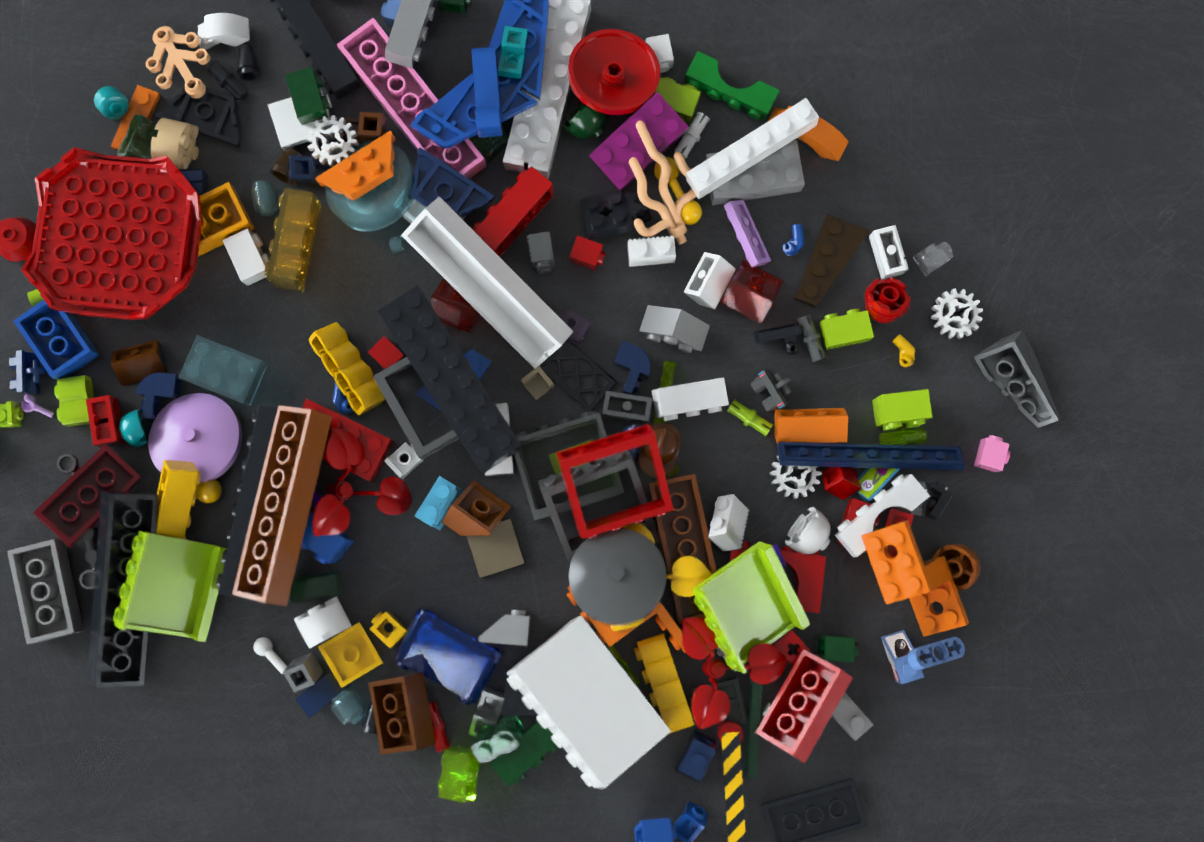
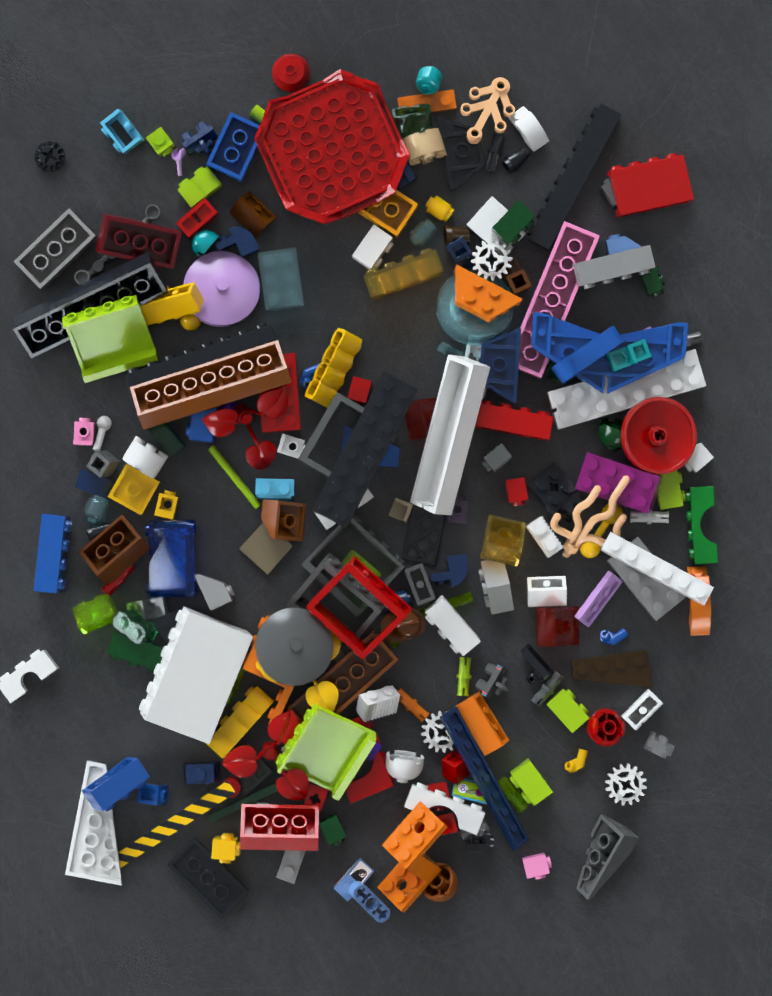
camera: 65 degrees right, 5 degrees up
(249, 167) = (439, 208): none -> yellow brick
(267, 676) = (87, 439): none -> bright pink brick
(365, 784) = (51, 553): none -> blue brick
(401, 539) = (235, 478): none -> lime bar
(631, 294) = (503, 540): none -> clear yellow brick
(750, 489) = (412, 706): none -> orange pin
(793, 777) = (225, 848): none -> yellow brick

